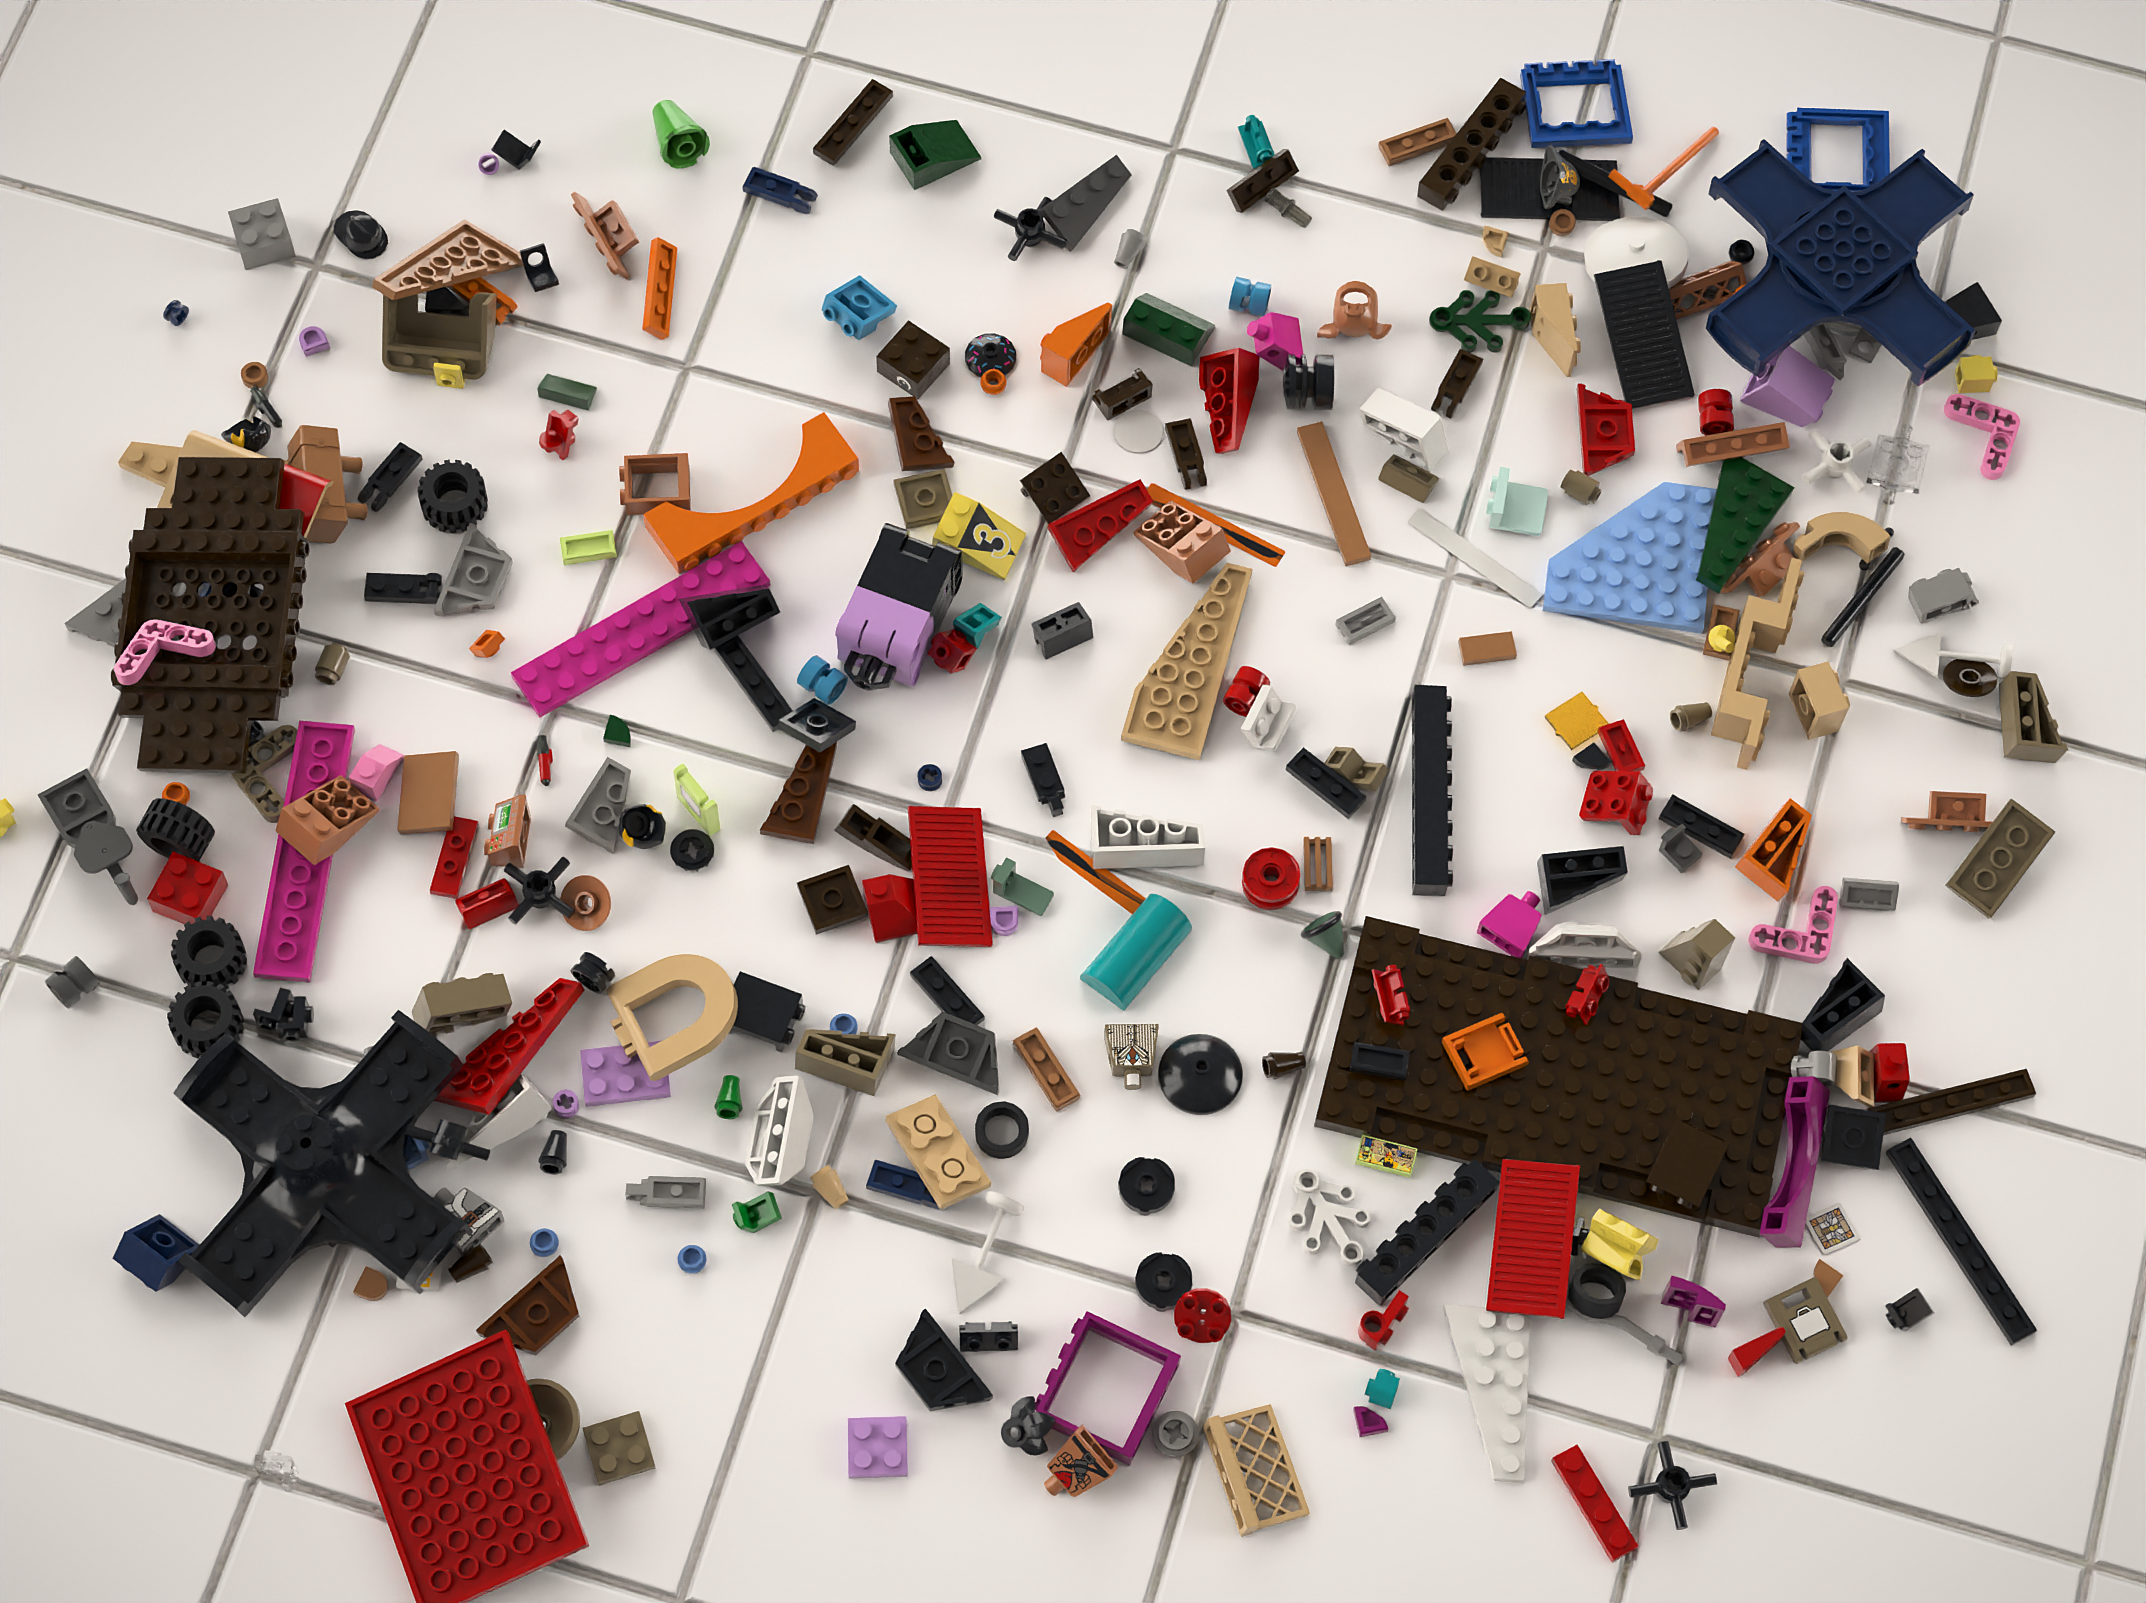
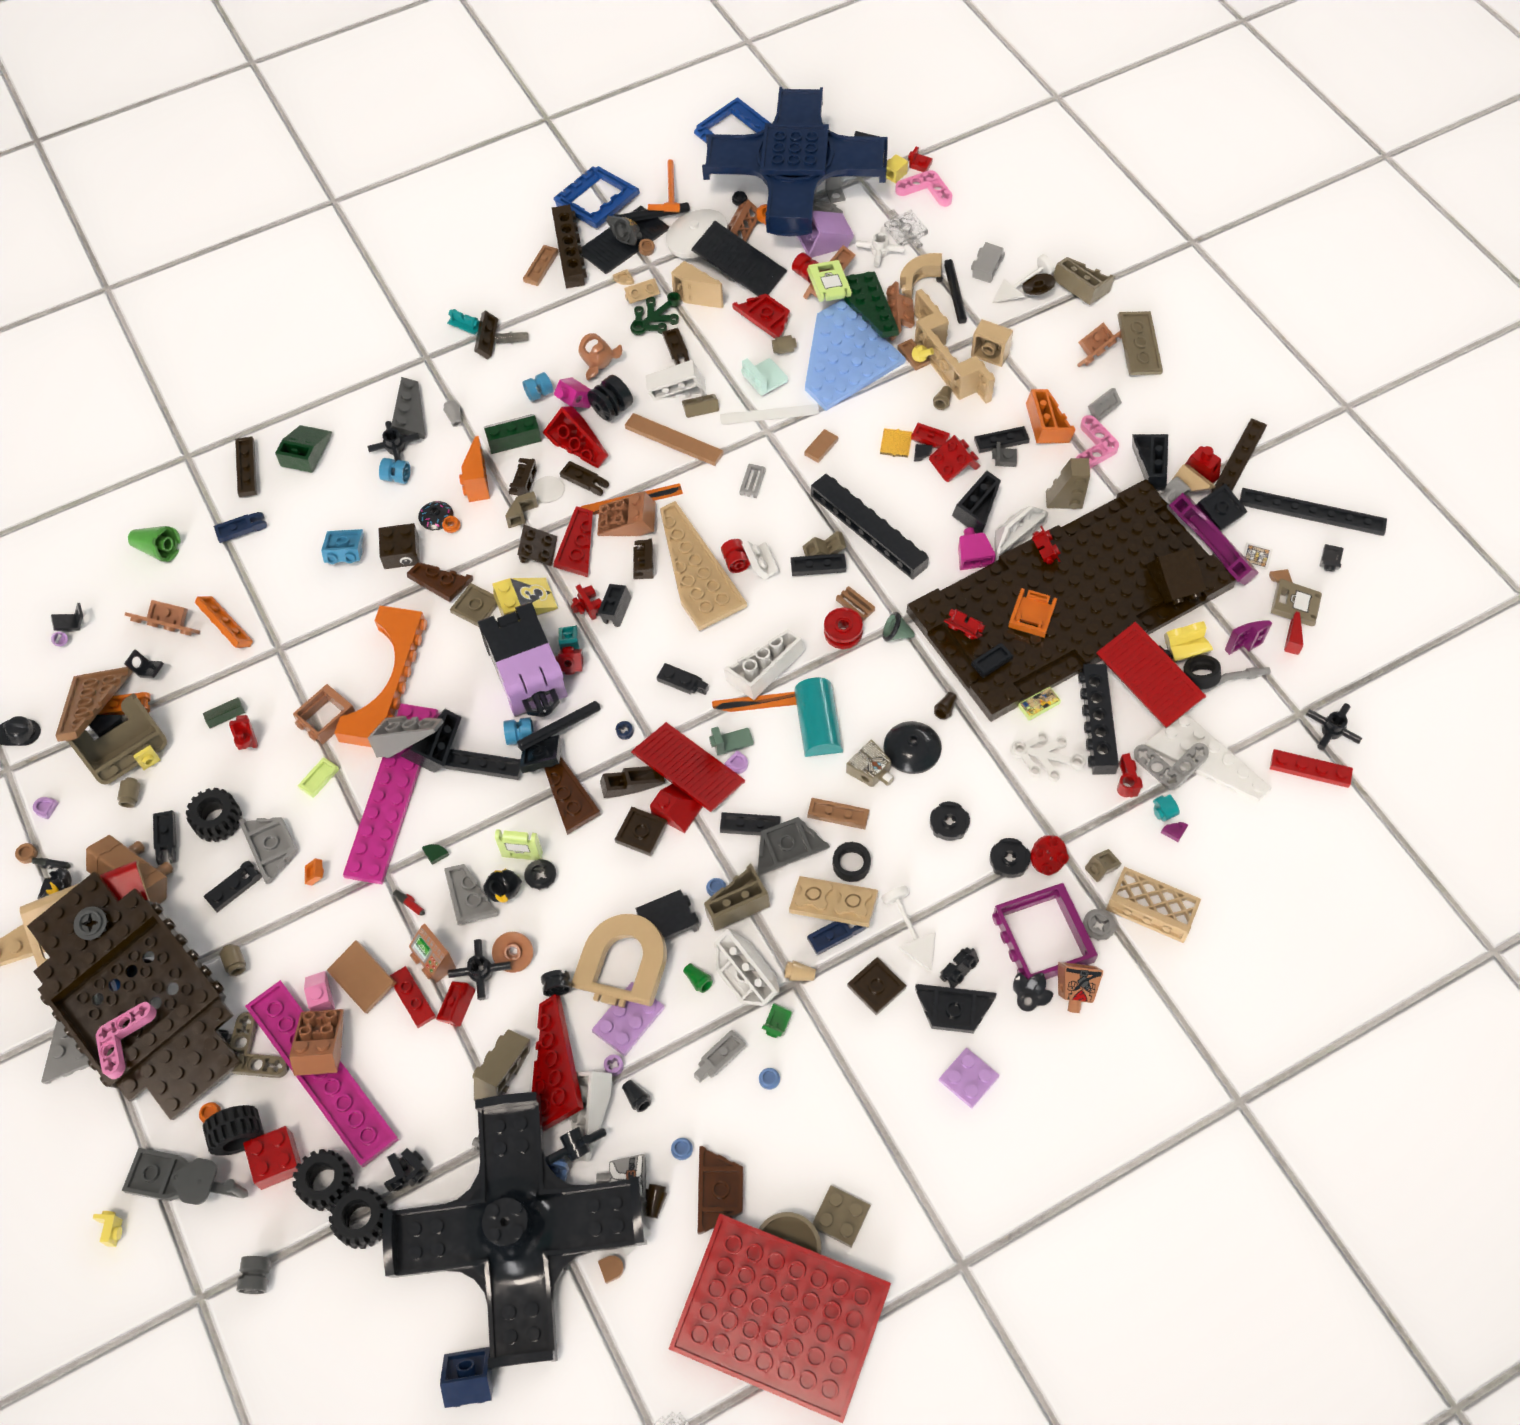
camera: 40 degrees left, 5 degrees down
(235, 498) = (85, 917): none -> dark grey gear
(400, 397) = (128, 792): none -> dark tan brick
(698, 574) = (399, 733): none -> light grey wedge
(866, 711) = (558, 725): none -> black axle
(888, 1274) = (876, 986): none -> dark brown plate
(996, 265) = (394, 470): none -> dark azure wheel
(1043, 590) = (584, 596): none -> red hips
(1068, 431) = (522, 503): none -> dark tan slope
(1148, 607) = (643, 560): none -> dark brown hinge
(1250, 1380) = (1102, 864): none -> dark tan bracket
(1440, 1361) = (1175, 770): none -> light grey beam
(1711, 458) = (830, 282): none -> yellowish green container
(2019, 389) = (918, 161): none -> red bracket

